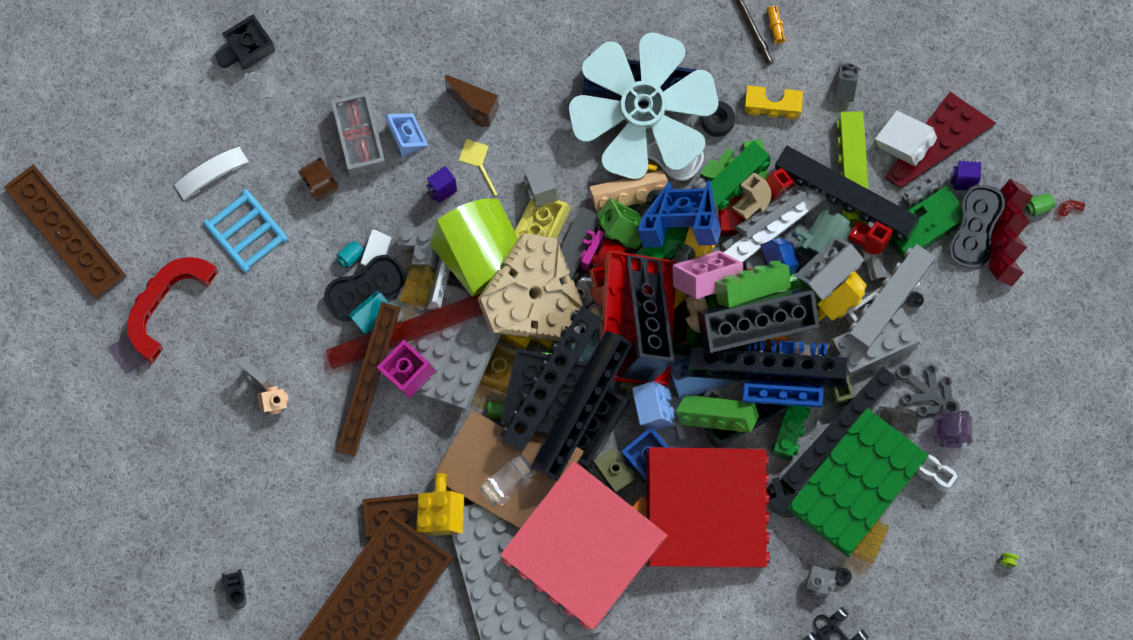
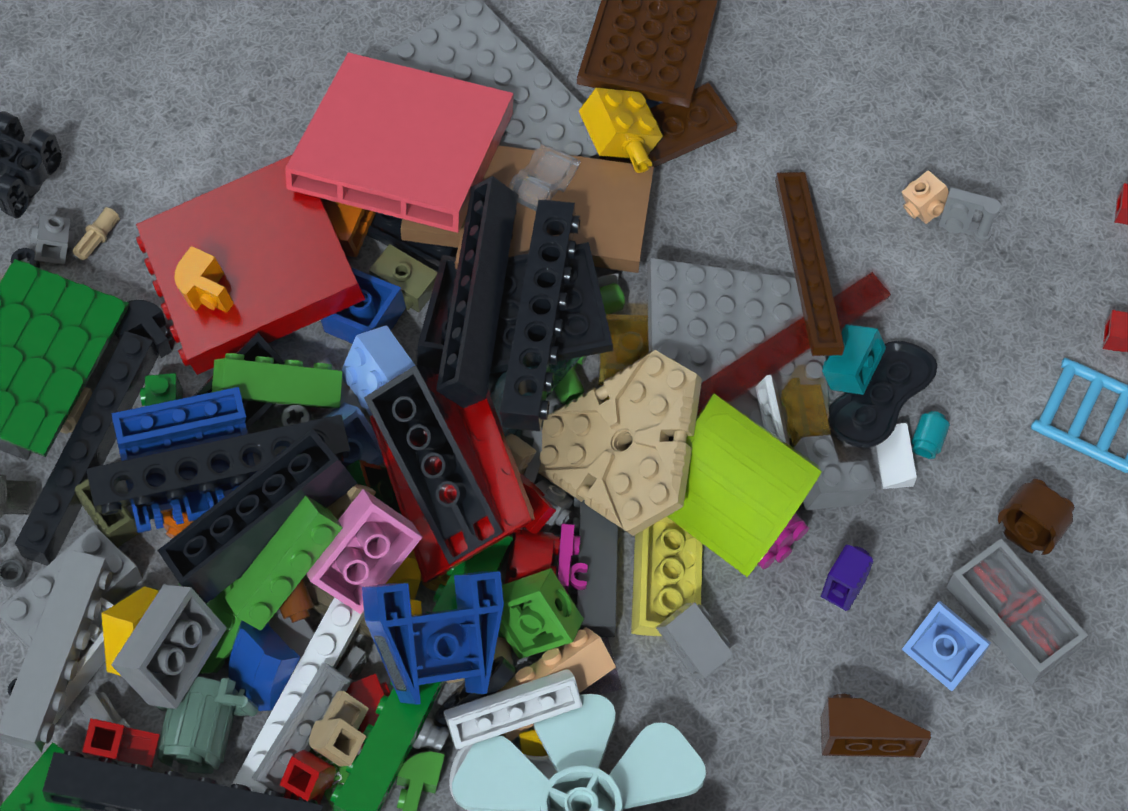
camera: 155 degrees right, 10 degrees down
(406, 369) = (760, 276): dark pink brick -> none
(474, 154) = (822, 663): light yellow piece -> none
(656, 176) = (513, 708): none -> white slope
(745, 493) = (198, 279): none -> light orange brick
(793, 578) = (96, 233): none -> tan axle

